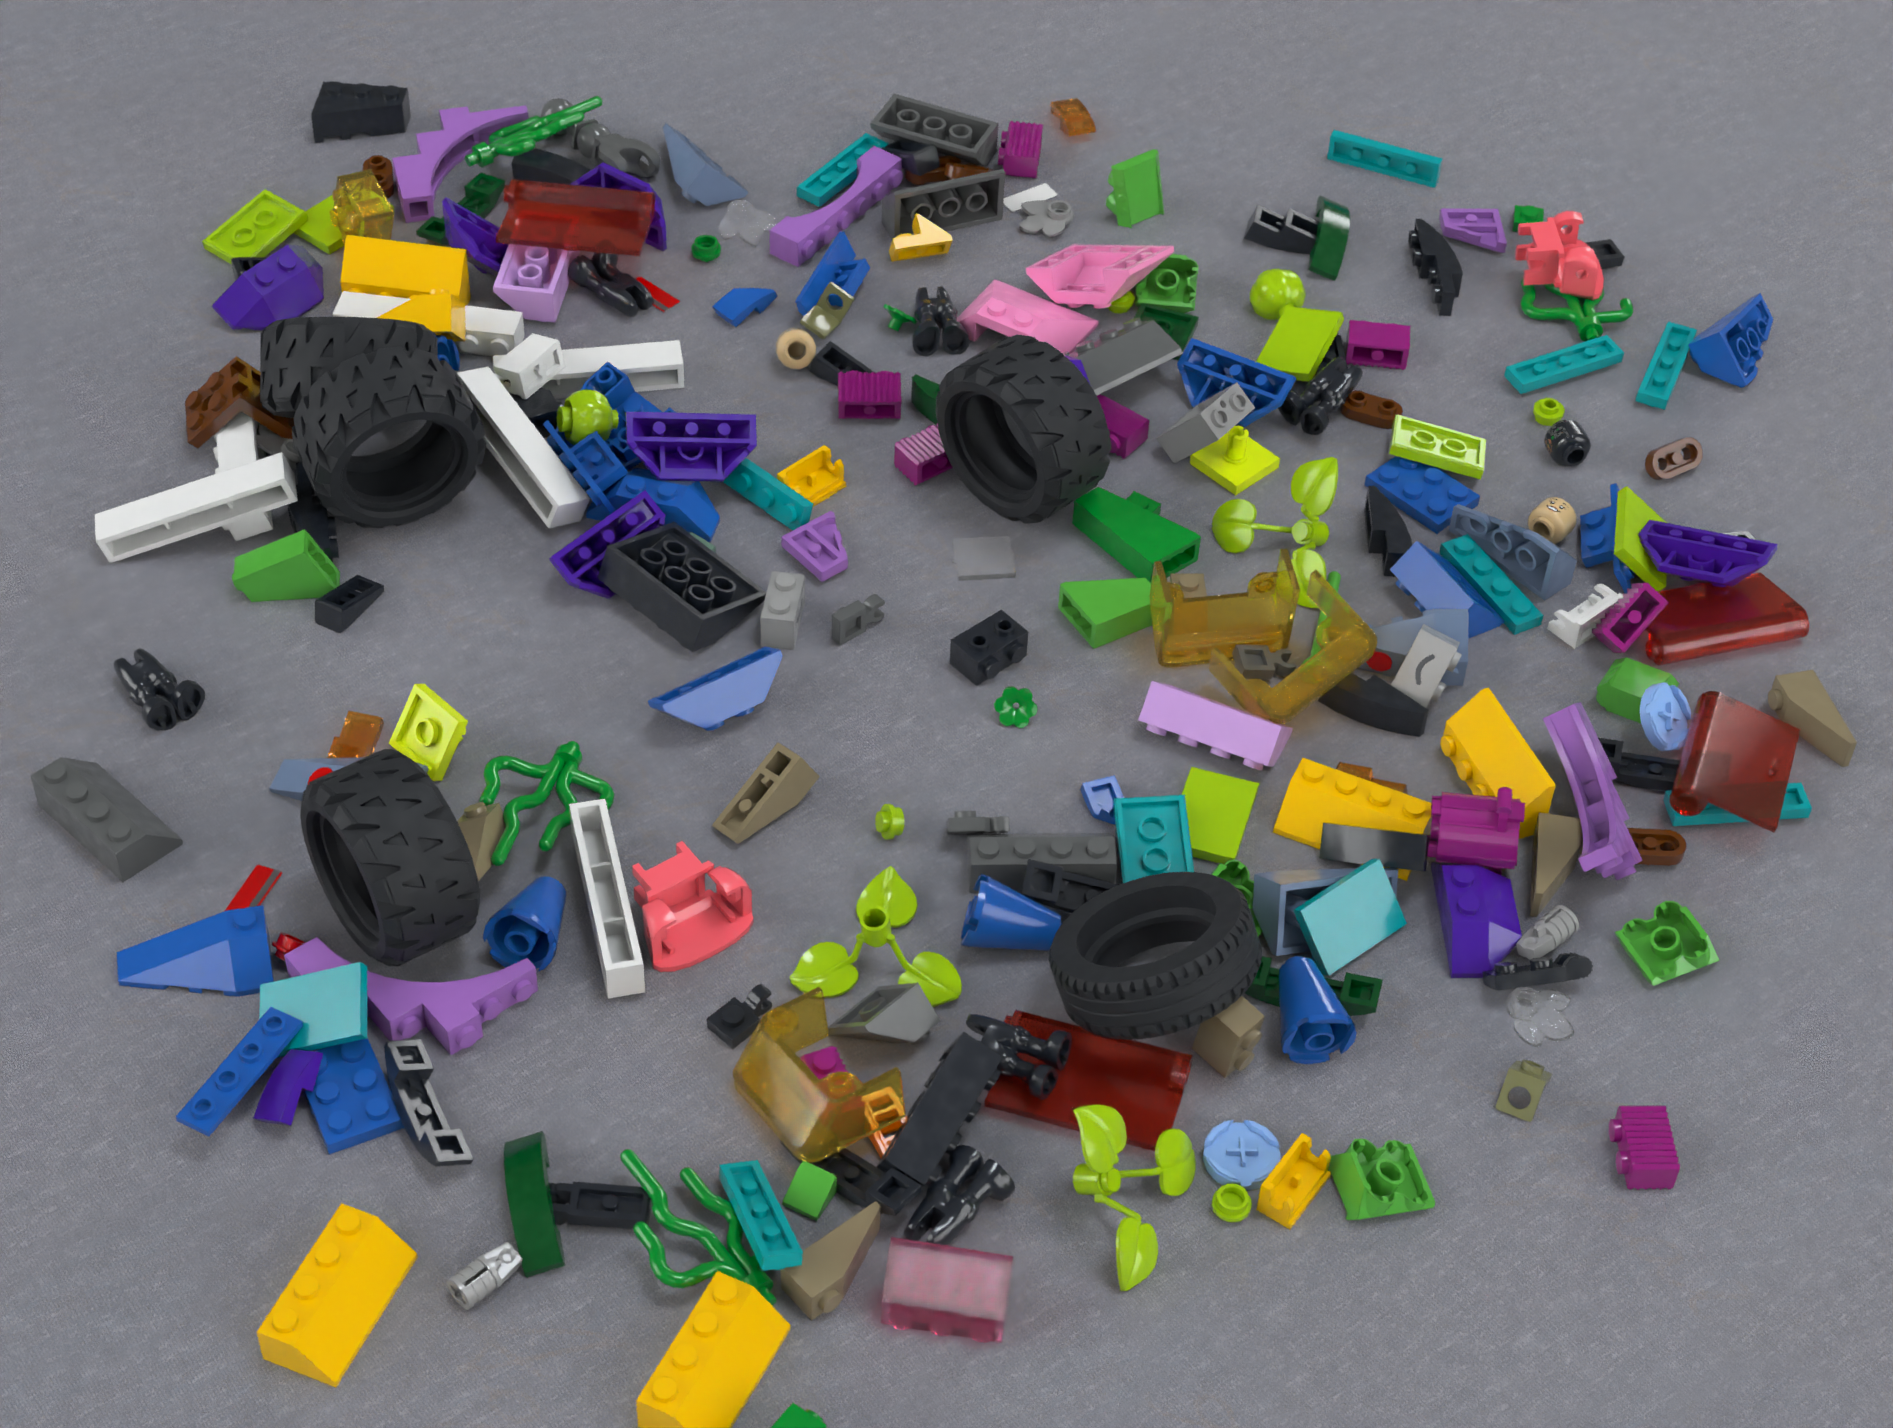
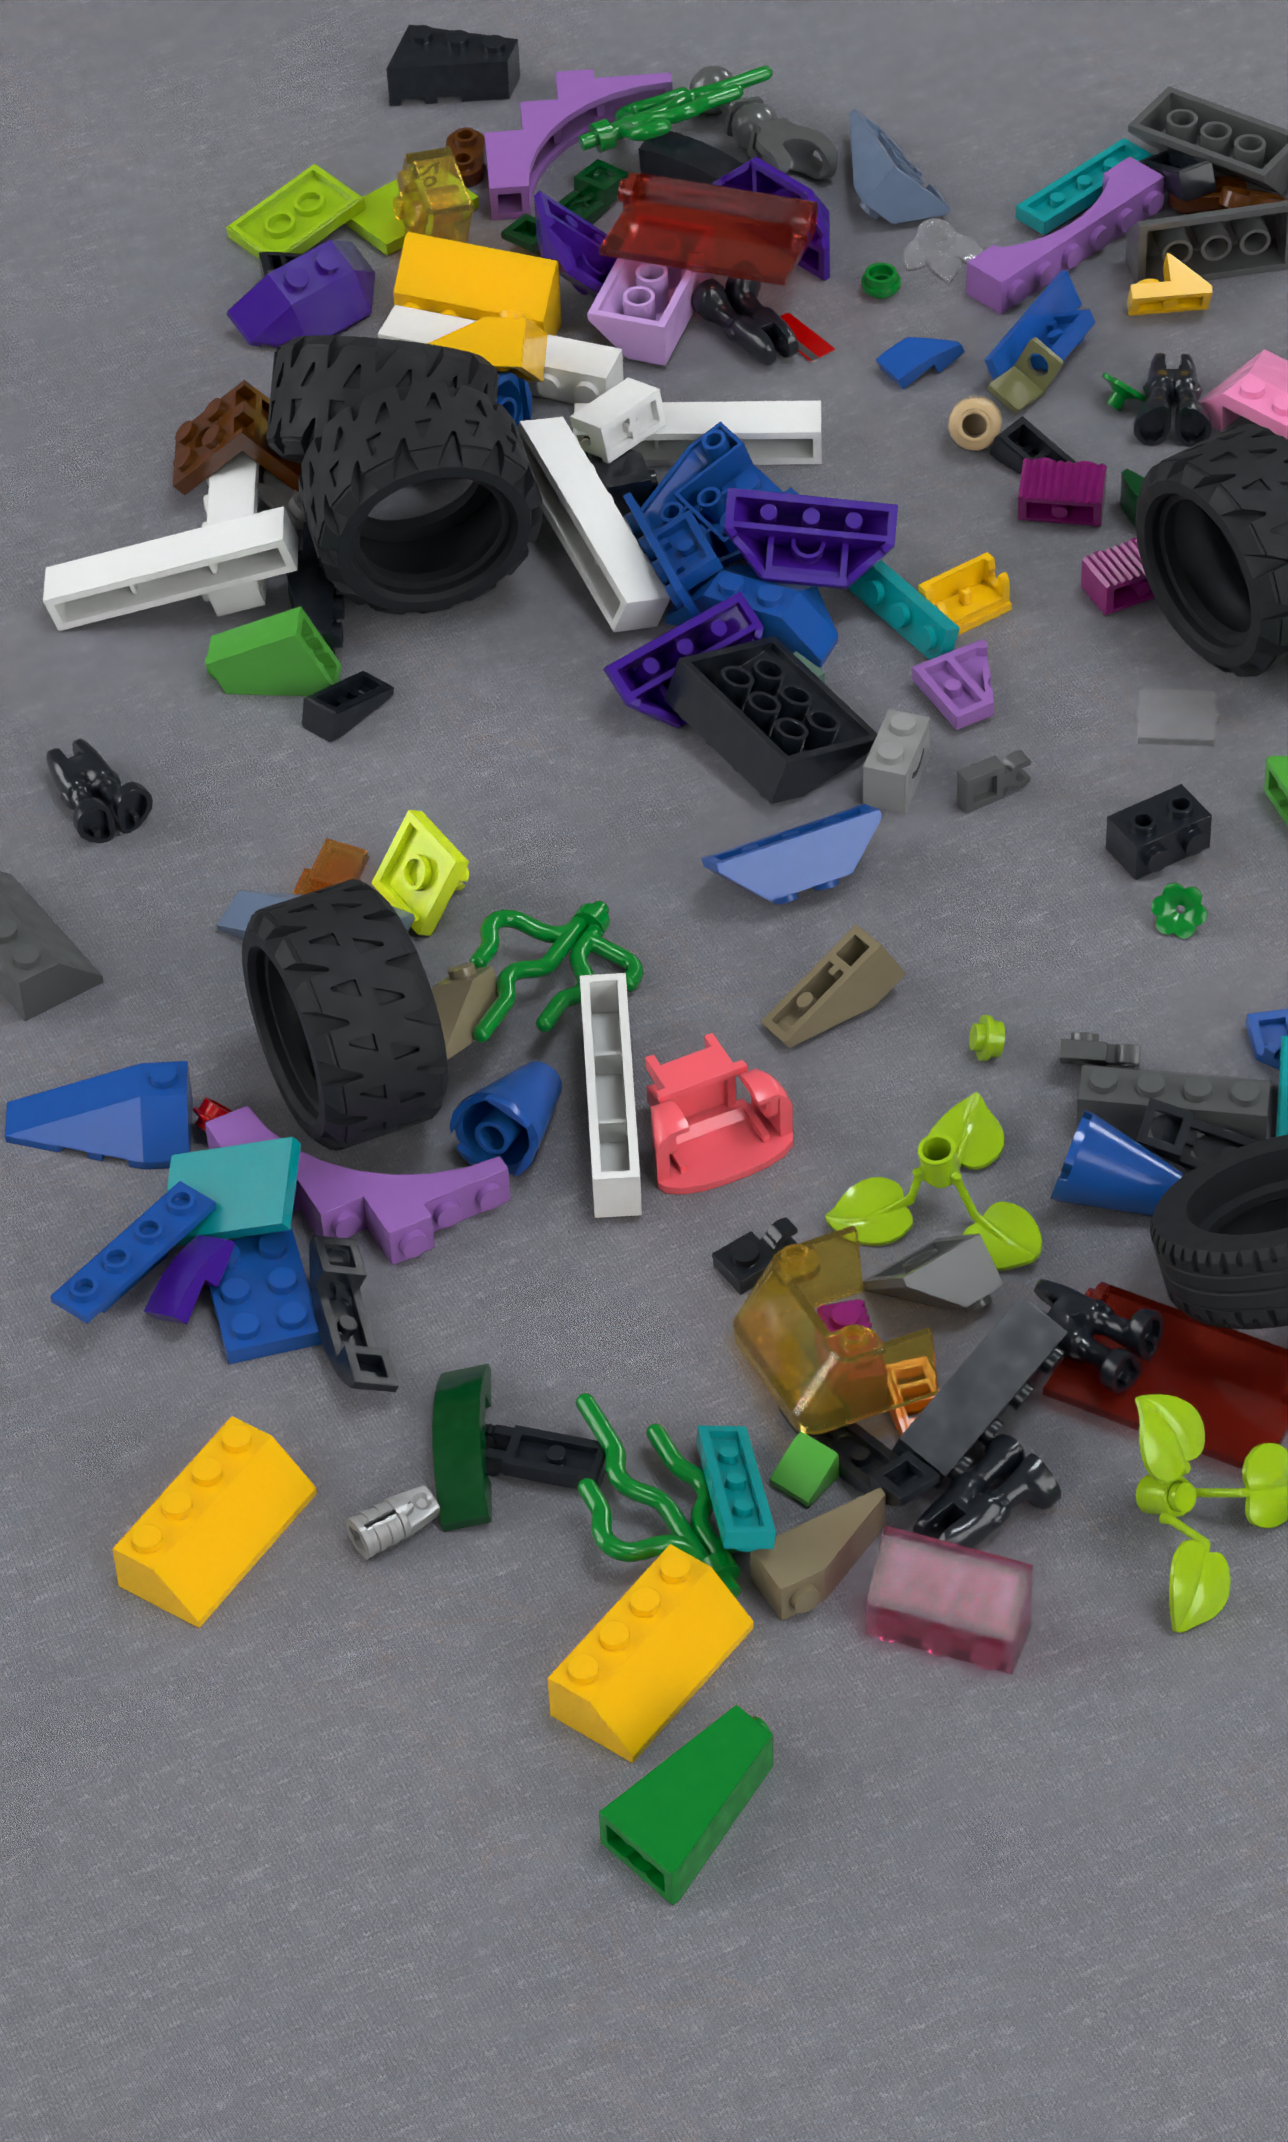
camera: 15 degrees right, 0 degrees up
(255, 888) = (185, 1041): red sticker -> none
(584, 414) = (680, 487): lime plant -> none

